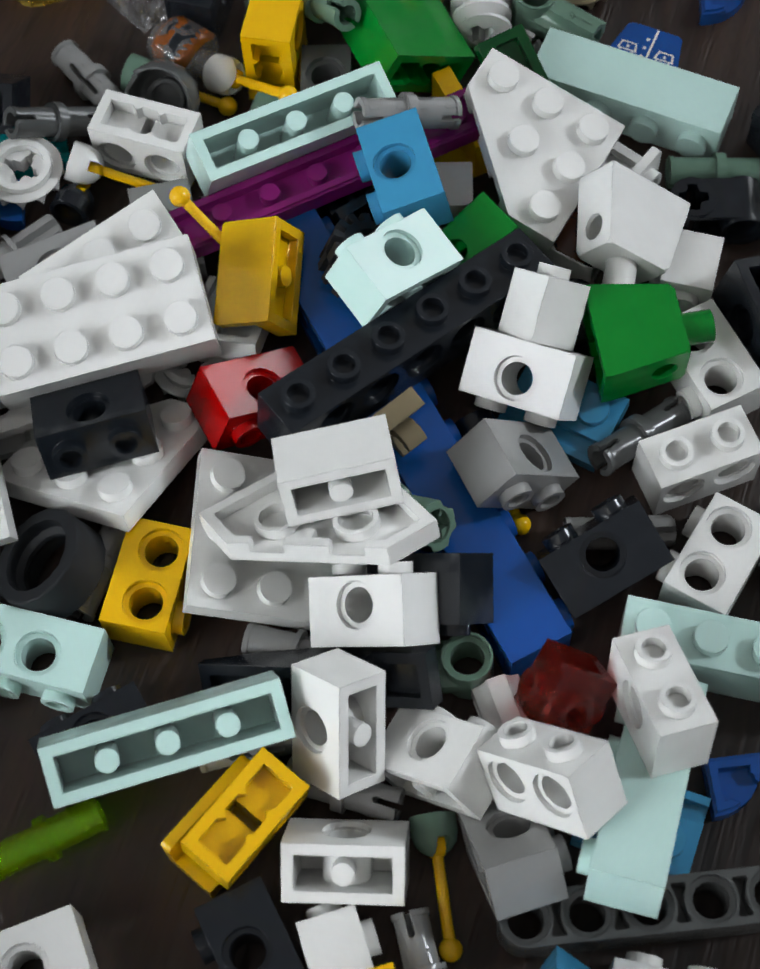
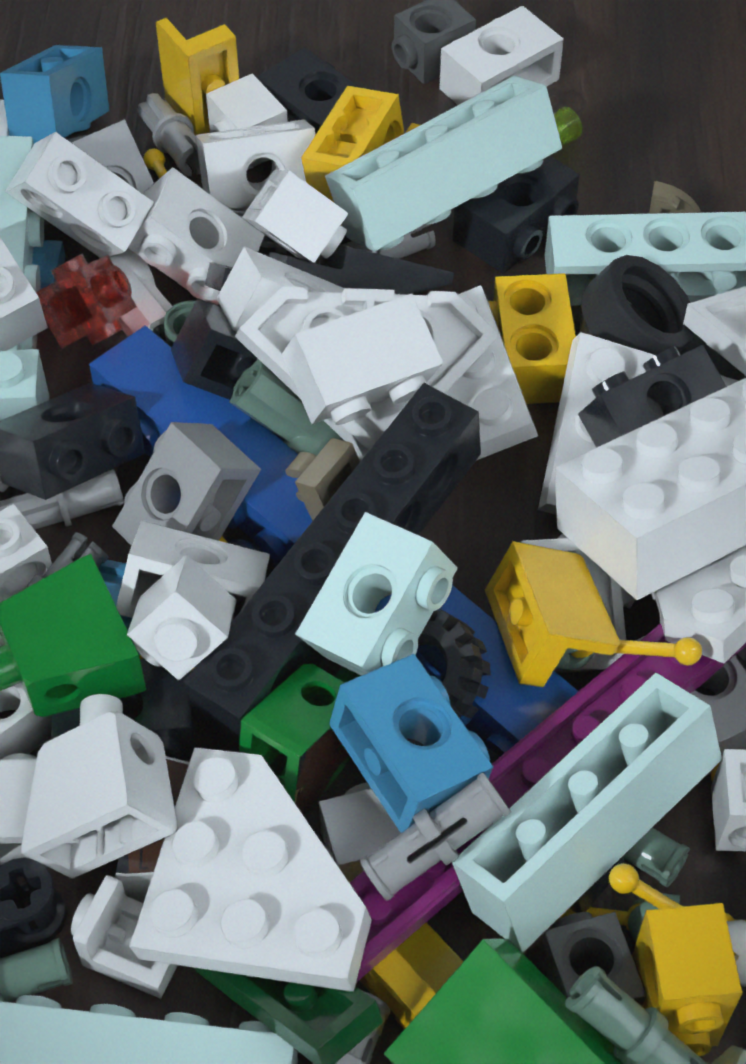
camera: 160 degrees right, 10 degrees down
(227, 395) = (501, 471): red brick -> none

